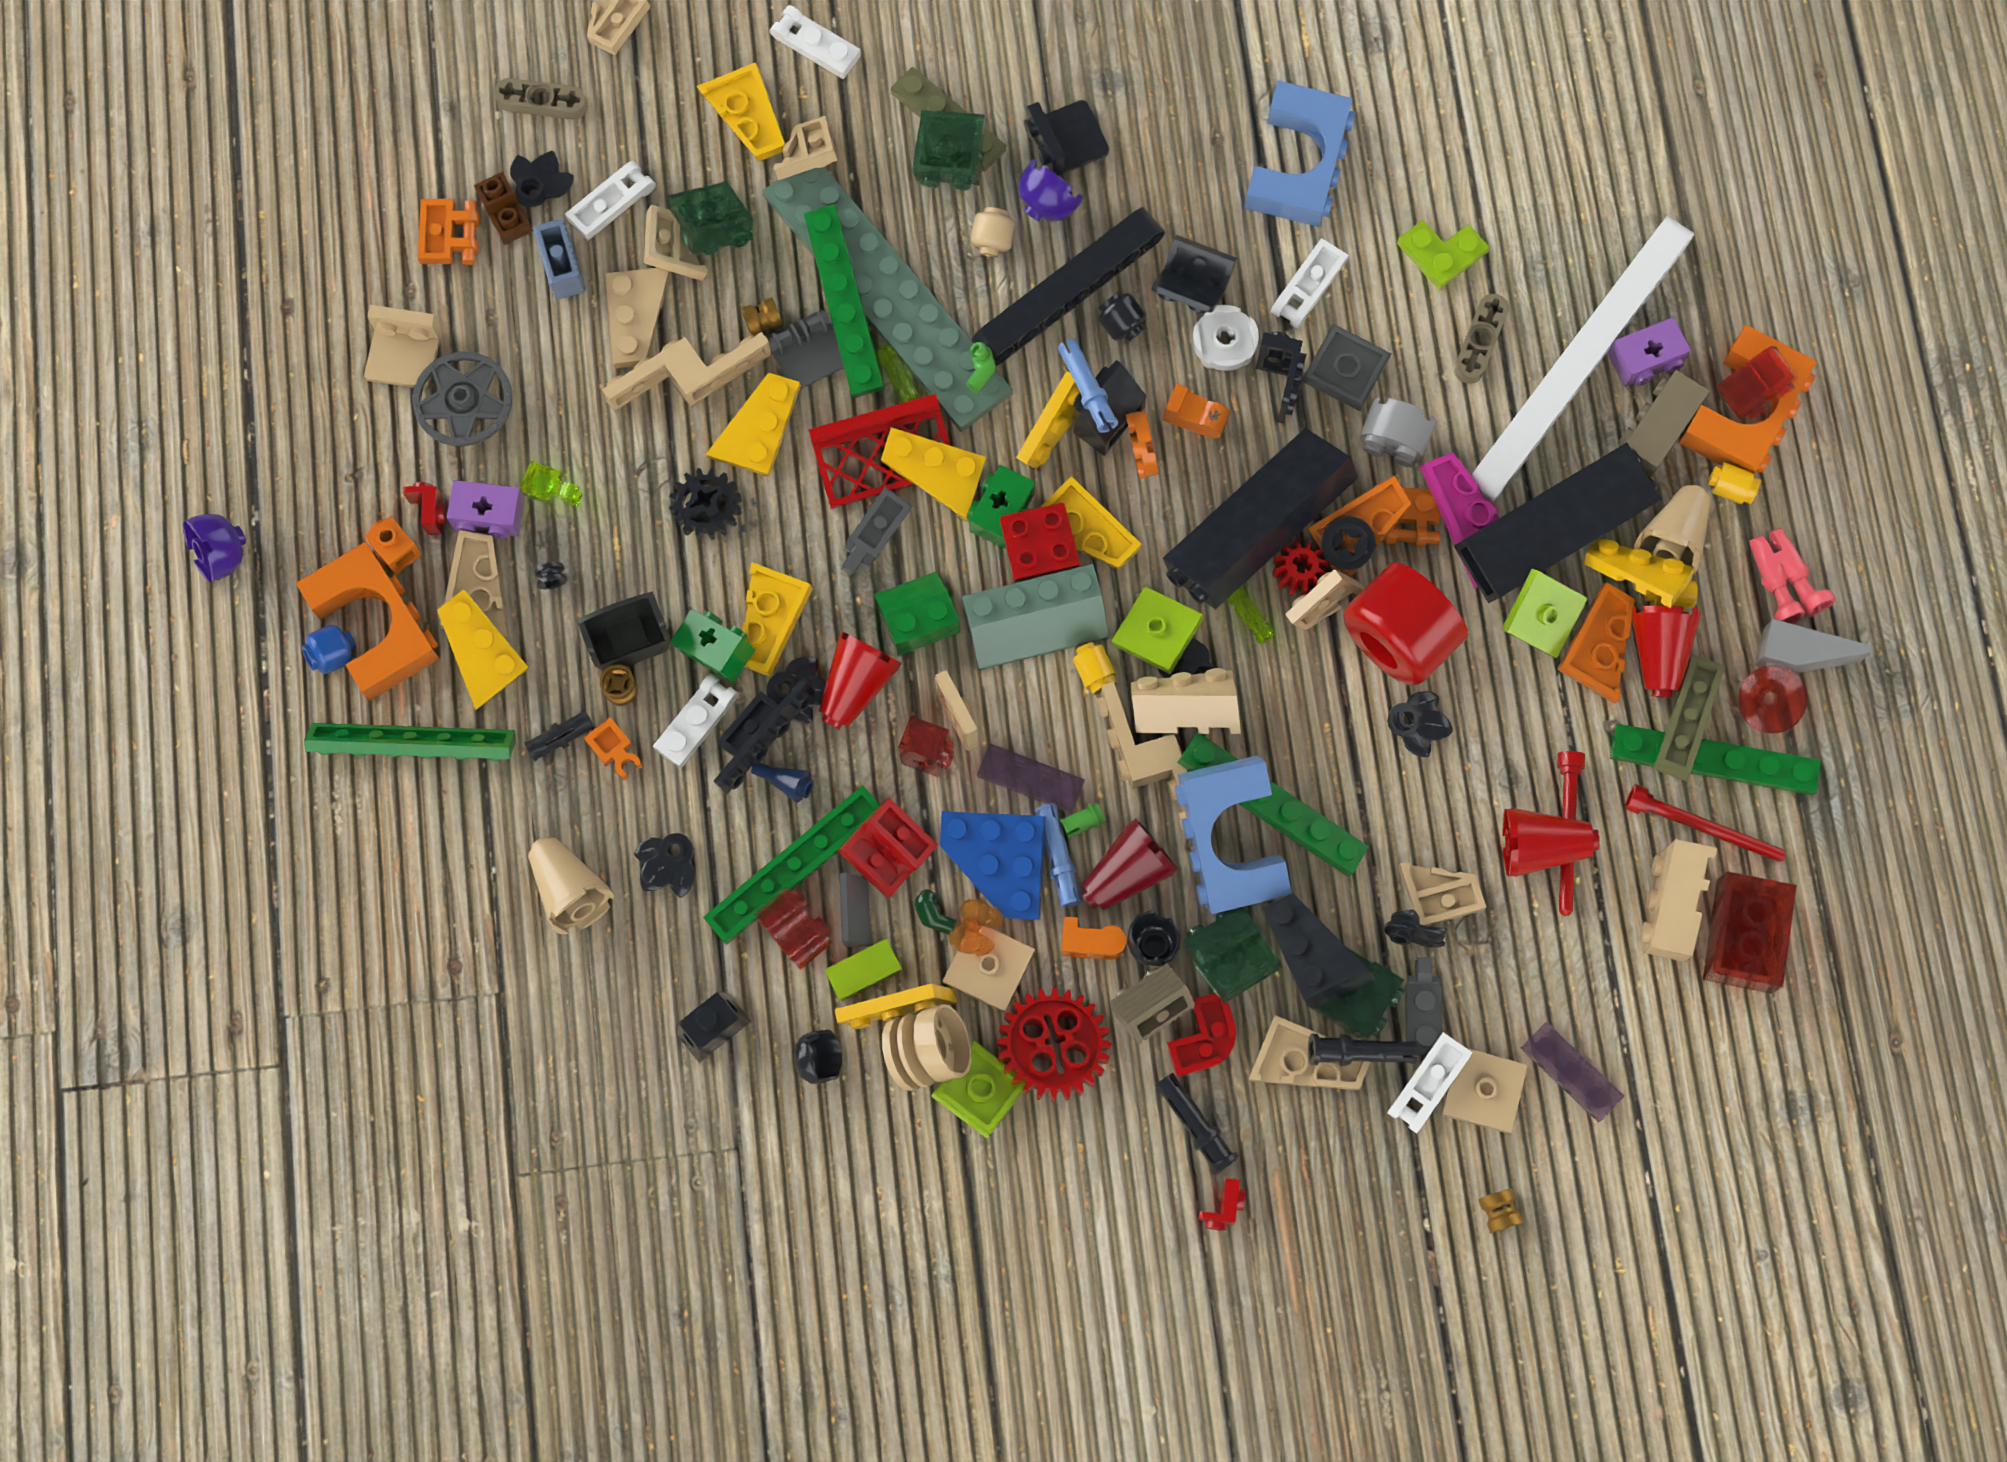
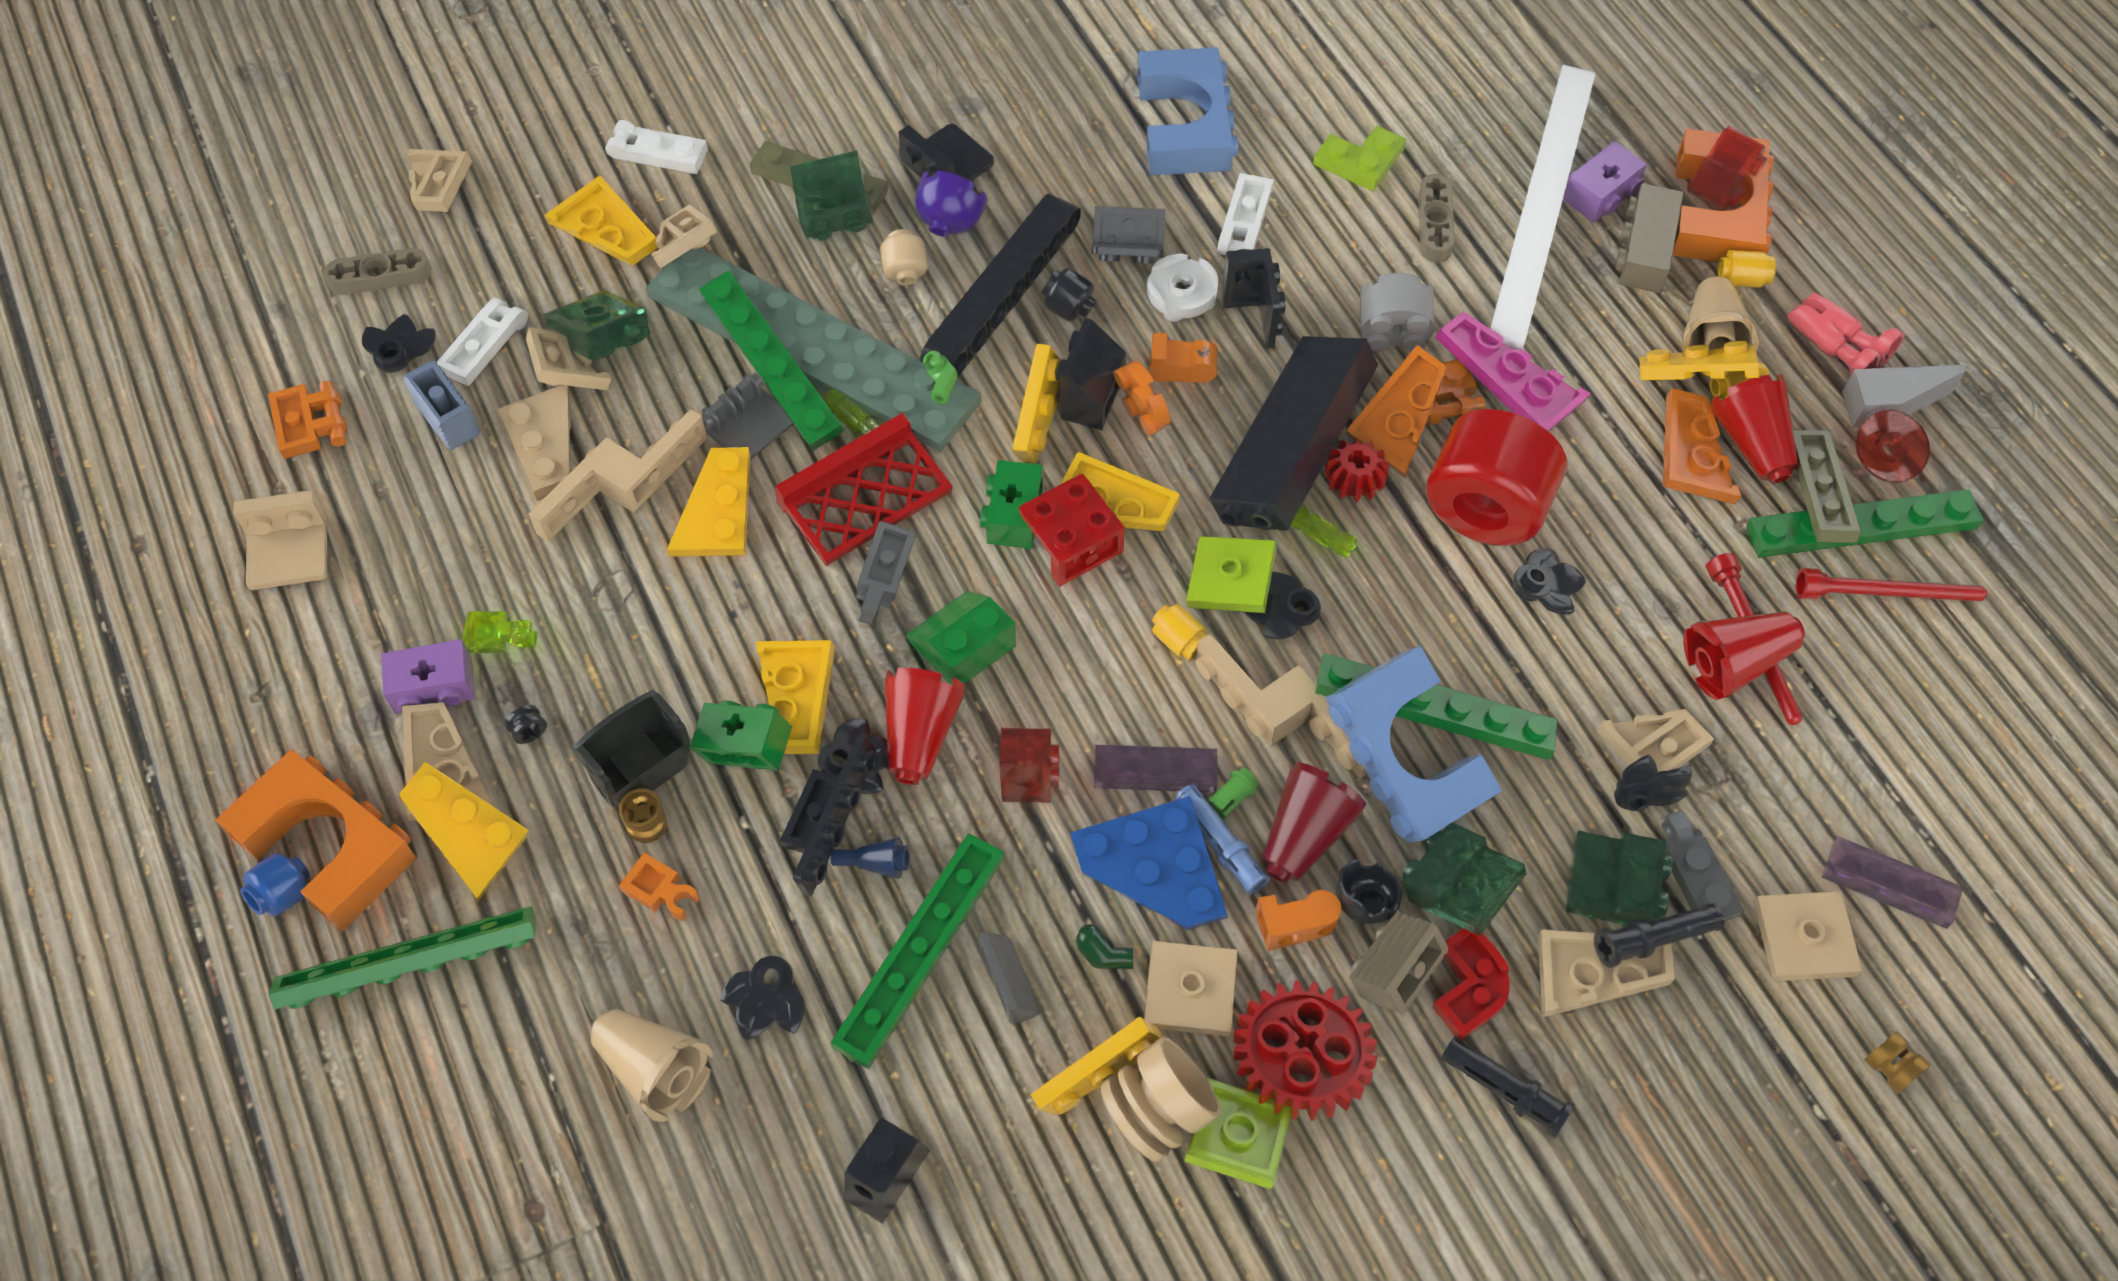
camera: 20 degrees left, 15 degrees down
(215, 545) = (103, 809): dark purple cylinder -> none
(392, 544) = (326, 744): orange brick -> none
(433, 510) = (356, 685): red bracket -> none
(462, 398) = (368, 572): dark grey wheel -> none
(503, 208) = (364, 381): reddish brown slope -> none
(580, 723) = (610, 872): black pin -> none
(695, 721) = (746, 830): white plate -> none
(715, 495) = (683, 597): black gear -> none
(762, 317) = (689, 396): pearl gold wheel -> none
(794, 928) = (945, 1017): clear red brick -> none
(818, 1057) = (1029, 1161): black hair -> none
(863, 970) = (1044, 1042): lime tile -> none
(888, 847) = (1023, 892): red slope -> none
(937, 468) = (927, 486): yellow wing -> none
(957, 710) = (1041, 709): tan plate -> none
(968, 936) = (1155, 960): clear orange piece -> none
(1035, 617) = (1093, 599): sand green slope -> none
(1093, 396) = (1077, 354): medium blue pin -> none
(1186, 702) = (1299, 628): tan wedge -> none
(1231, 1201) = (1590, 1165): red bracket -> none
(1313, 953) = (1557, 842): black wedge -> none
(1322, 599) = (1392, 494): tan wing -> none
(1333, 538) = (1396, 409): black gear -> none
(1346, 367) = (1316, 279): dark grey tile -> none
(1430, 1081) = (1748, 943): white plate -> none
(1544, 613) = (1627, 432): lime plate -> none
(1558, 522) = (1596, 348): black brick -> none
(1676, 900) = (1906, 663): tan wedge -> none
(1749, 932) = (2000, 673): clear red brick -> none

